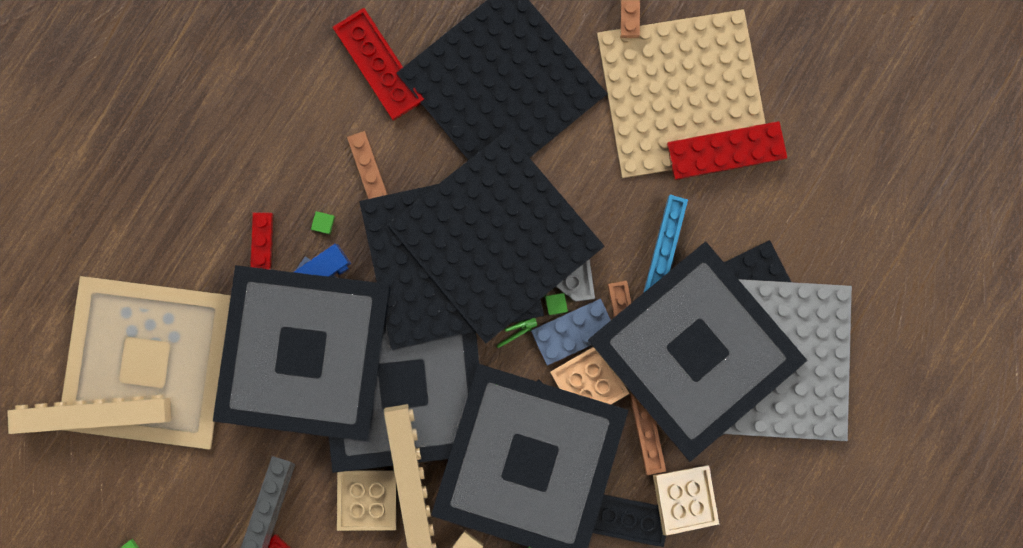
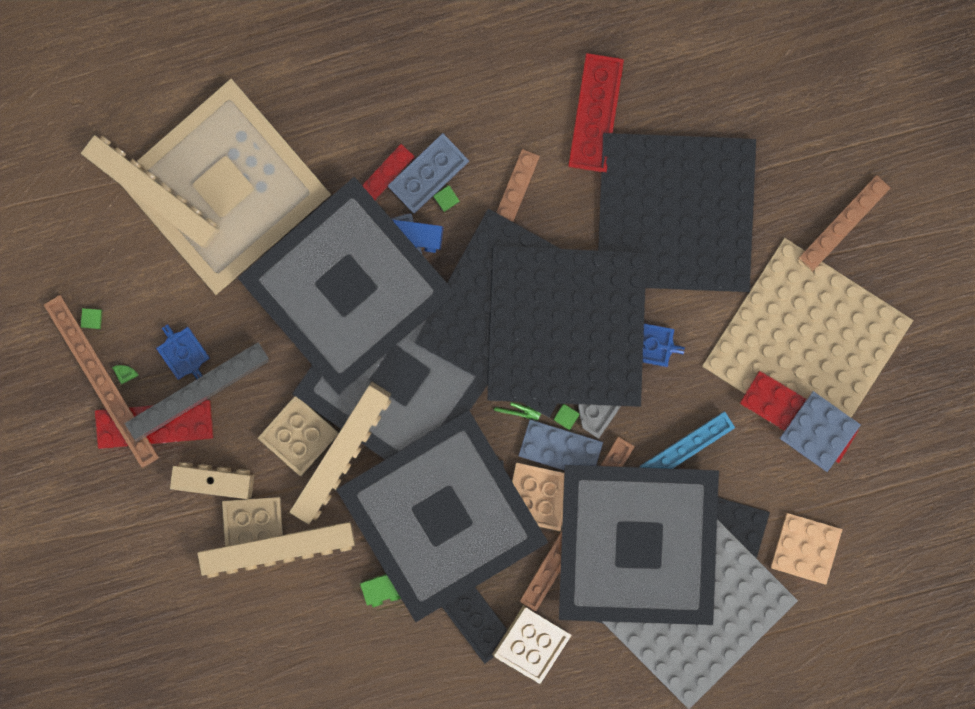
camera: 35 degrees right, 5 degrees up
(222, 516) = (183, 353): none -> blue plate
(292, 216) = (428, 173): none -> sand blue plate
(577, 190) = (659, 345): none -> blue plate
(752, 146) = (820, 431): none -> sand blue plate
(820, 242) = (806, 548): none -> light nougat plate

